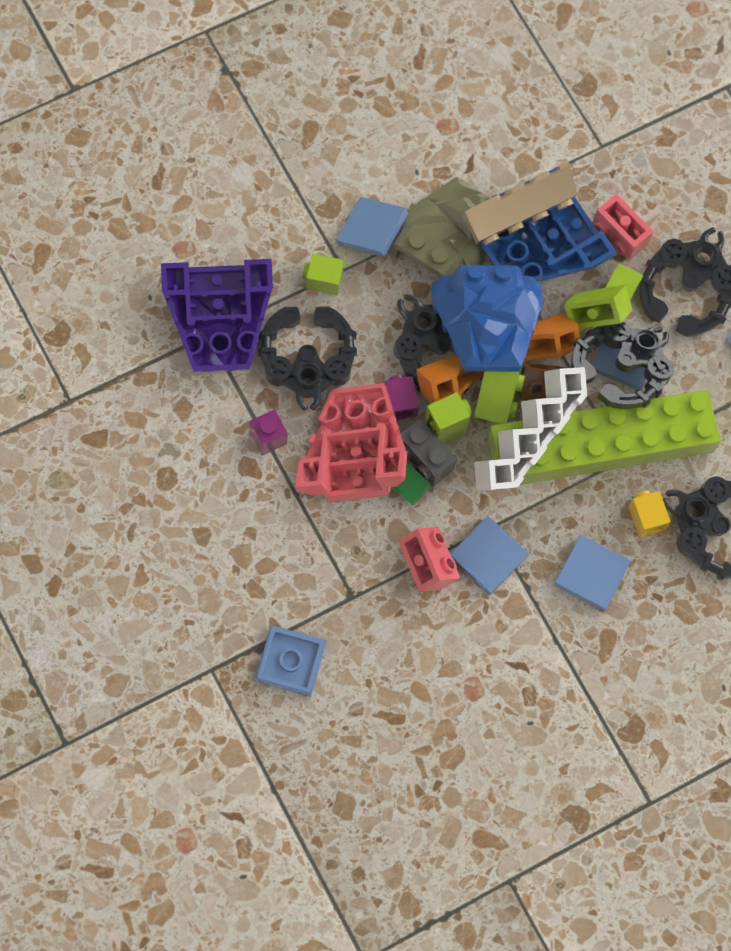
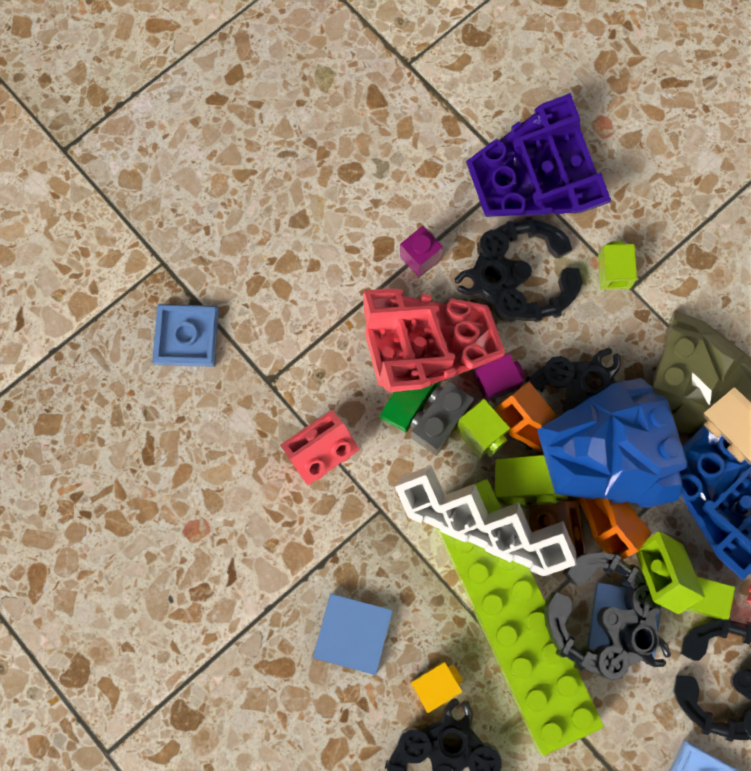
camera: 90 degrees right, 5 degrees up
(372, 226) = (689, 302): medium blue tile -> none
(489, 555) = (345, 513): medium blue tile -> none

